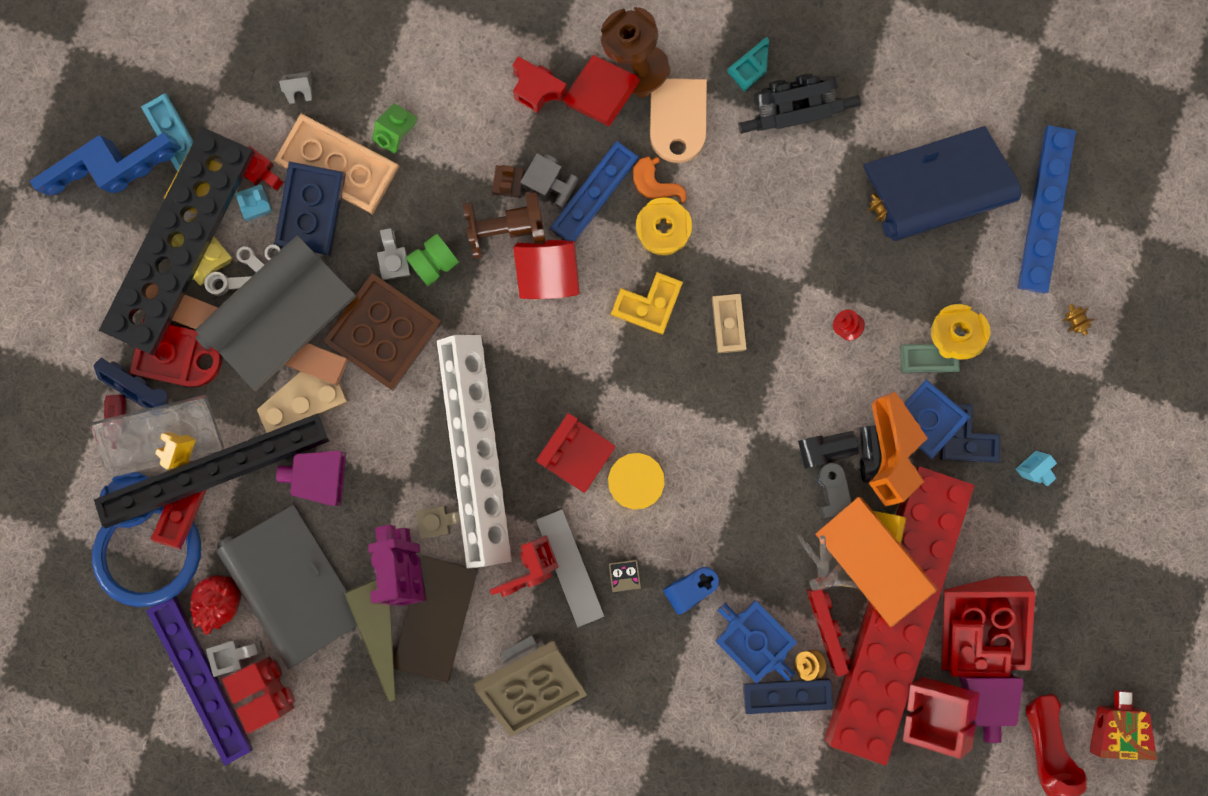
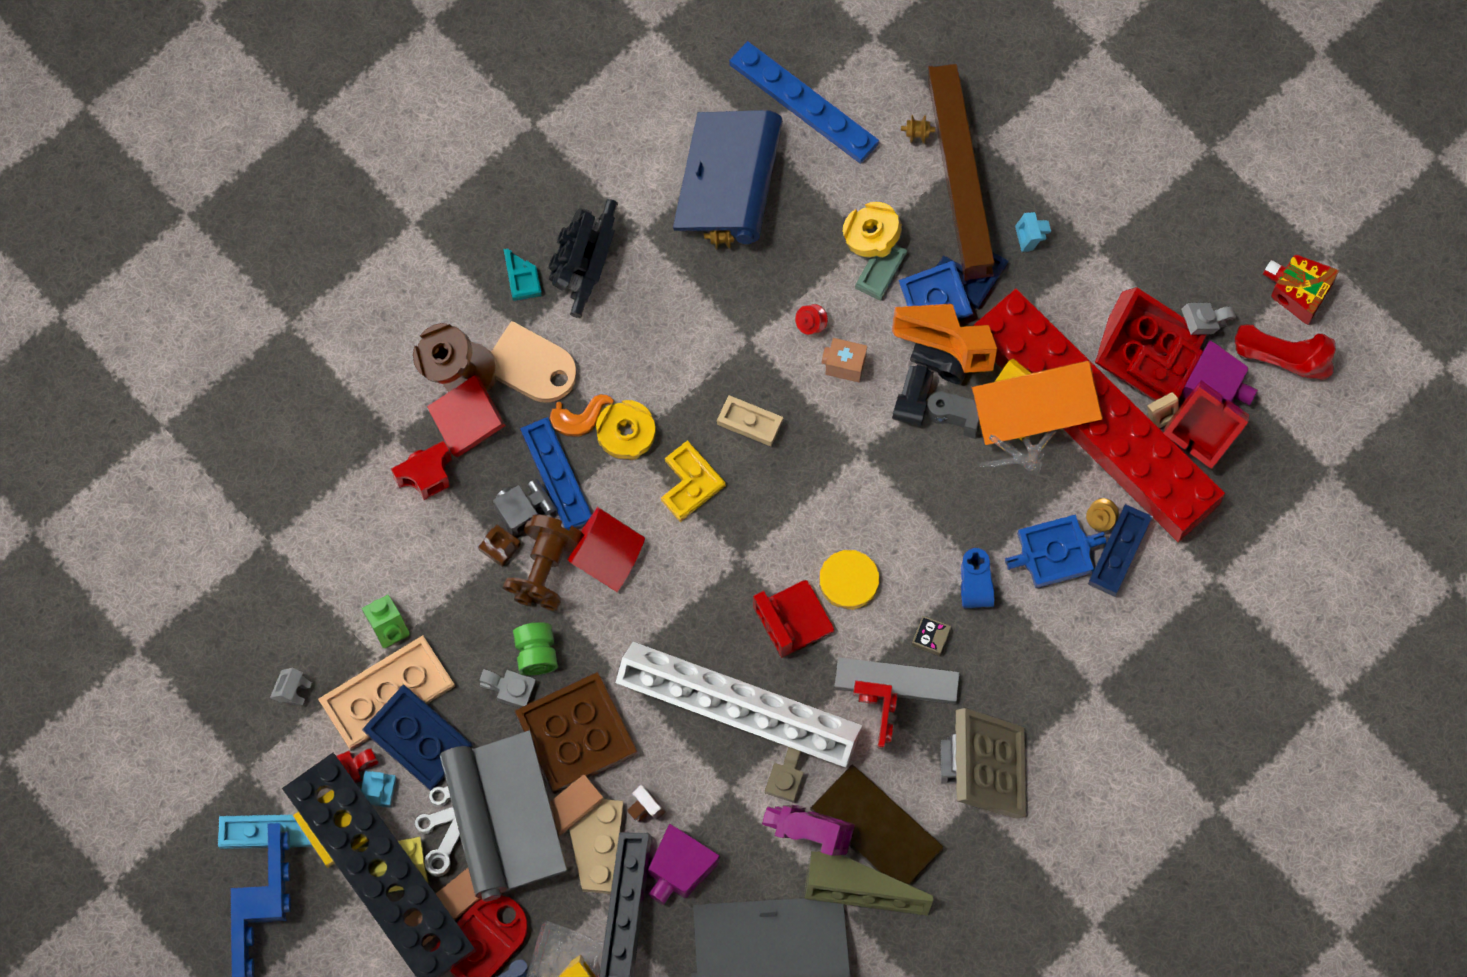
camera: 60 degrees left, 15 degrees down
(352, 423) = (645, 805): none -> tile
(827, 372) = (845, 359): none -> nougat brick
(829, 631) = (1079, 483): red plate -> none
(935, 669) = (1163, 409): none -> tan tile
(1040, 662) = (1203, 320): none -> light grey plate
(1059, 378) = (960, 172): none -> reddish brown tile

